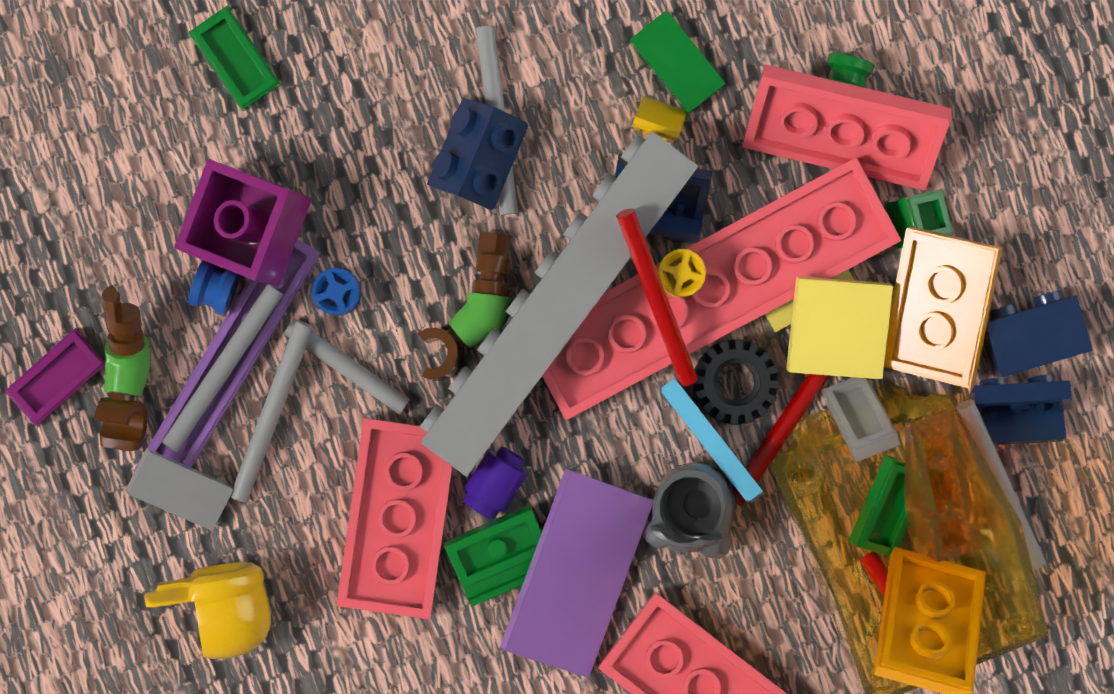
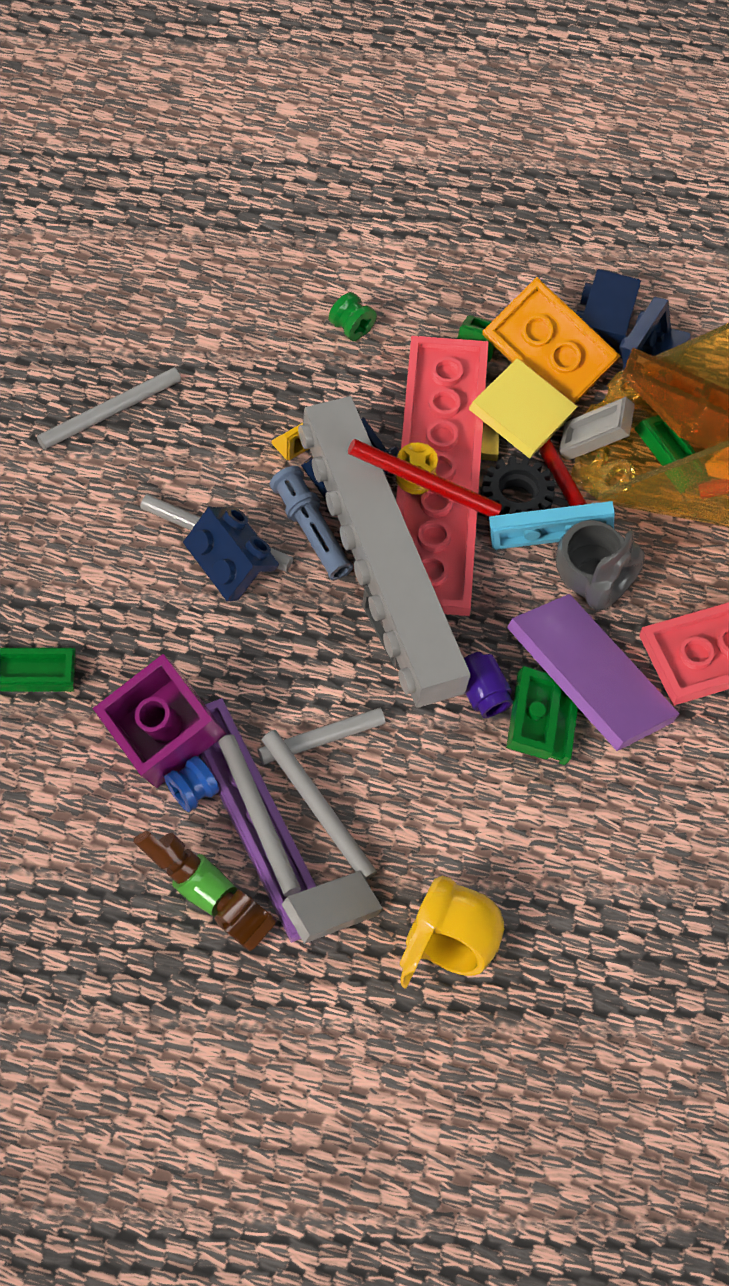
camera: 60 degrees left, 30 degrees down
(56, 377) = (171, 952): magenta tile -> none
(327, 287) = (255, 694): blue wheel -> none
(394, 522) = (467, 771): coral plate -> none
(483, 308) = (351, 620): reddish brown piece -> none
(577, 185) = (305, 510): none -> sand blue pin
(677, 62) = (263, 406): green tile -> none
(837, 121) = (376, 331): coral plate -> none

